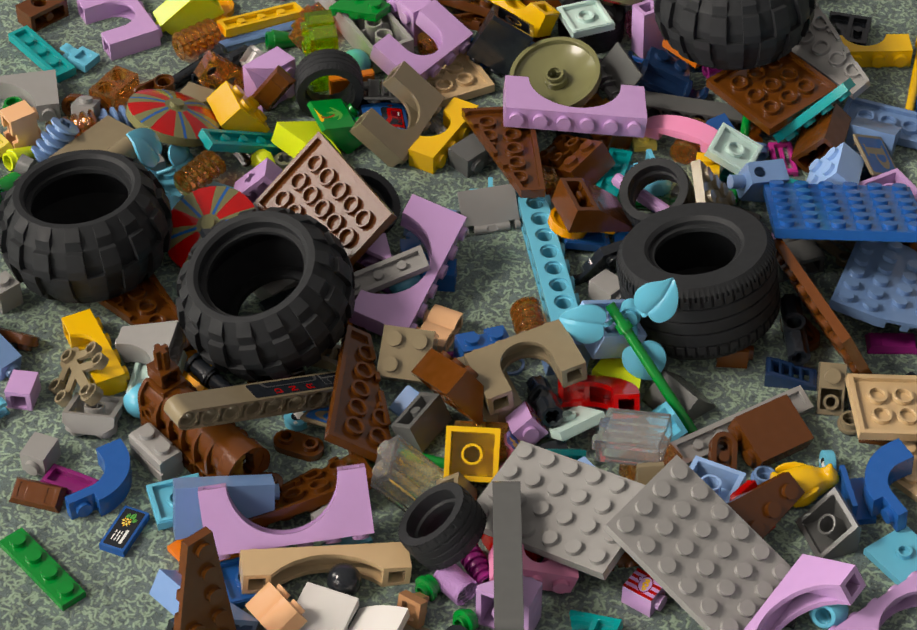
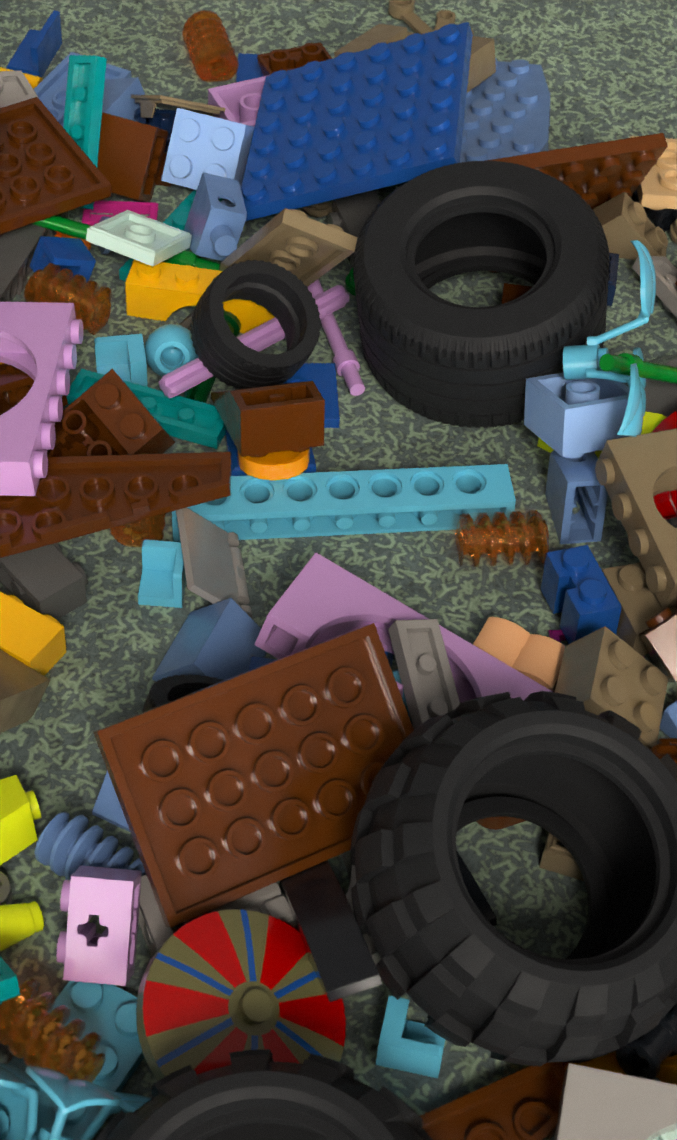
camera: 90 degrees left, 5 degrees up
(602, 259) = (374, 424): black wing -> none
(604, 286) = (421, 436): light grey brick -> none
(680, 128) = (82, 275): bright pink slope -> none

